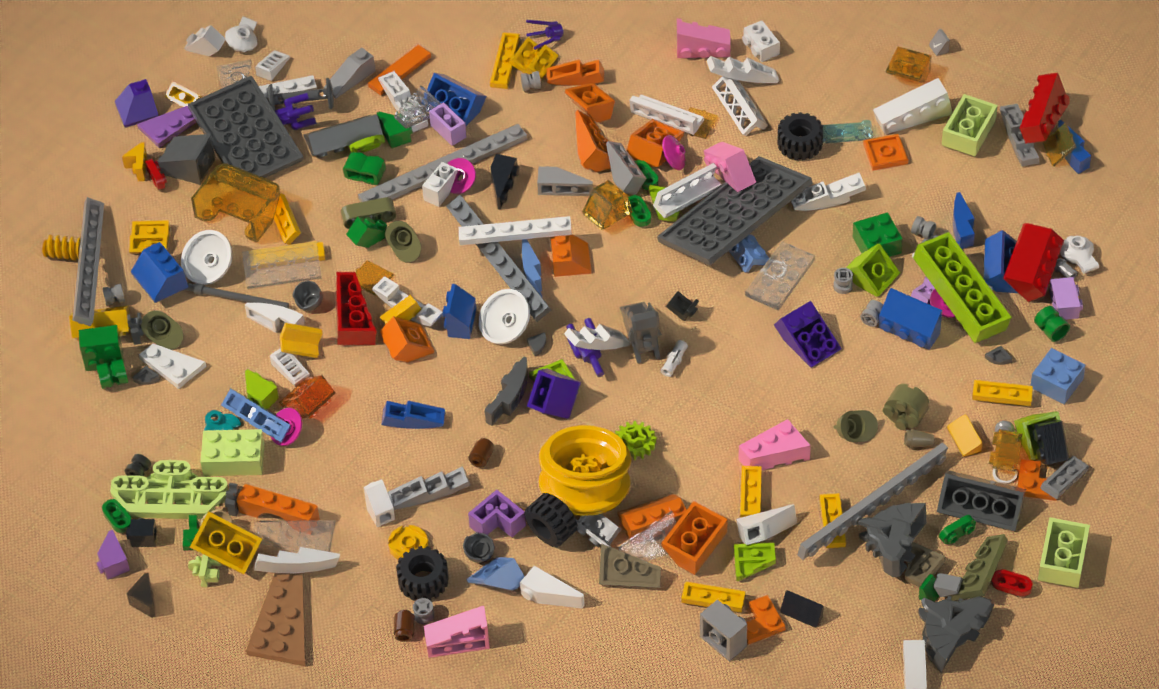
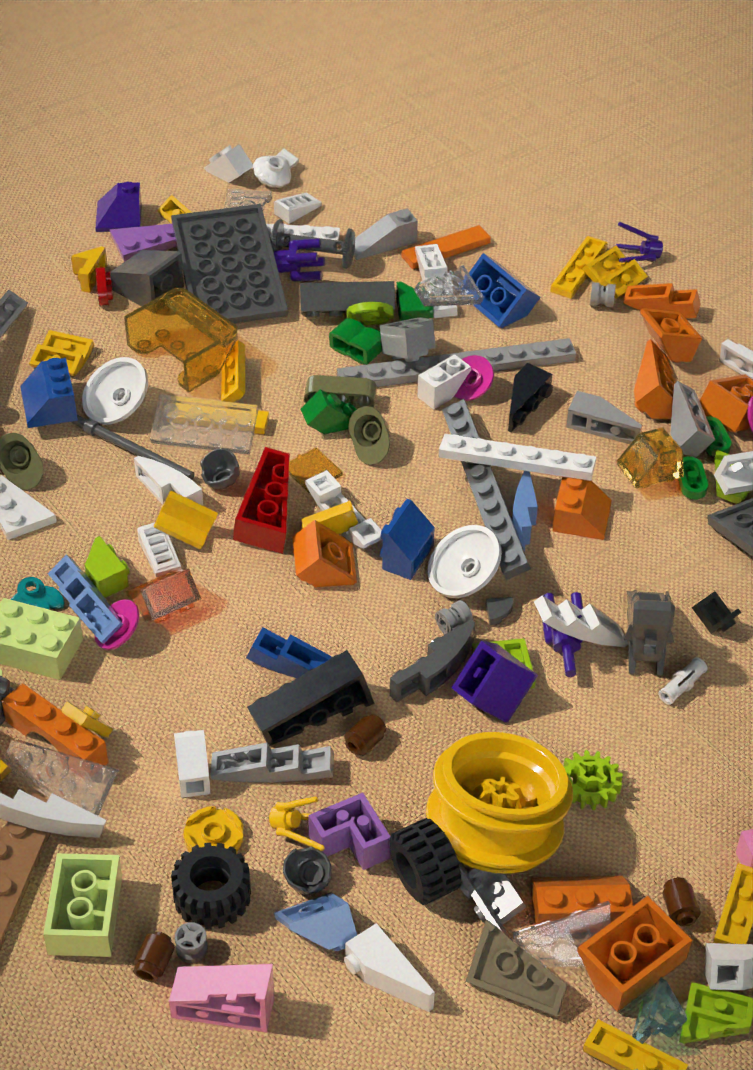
camera: 15 degrees right, 5 degrees down
(297, 493) = (87, 718): none -> yellow plate
(348, 608) = (83, 905): none -> yellowish green brick
(403, 157) = (408, 338): none -> light grey brick
(438, 439) = (311, 699): none -> black wedge
(447, 124) = (479, 316): lavender brick -> none
(451, 519) = (285, 818): none -> yellow plant
(510, 357) = (450, 618): none -> light grey wheel
(714, 499) = (681, 901): none -> reddish brown brick
(720, 567) = (659, 1013): none -> clear light blue slope

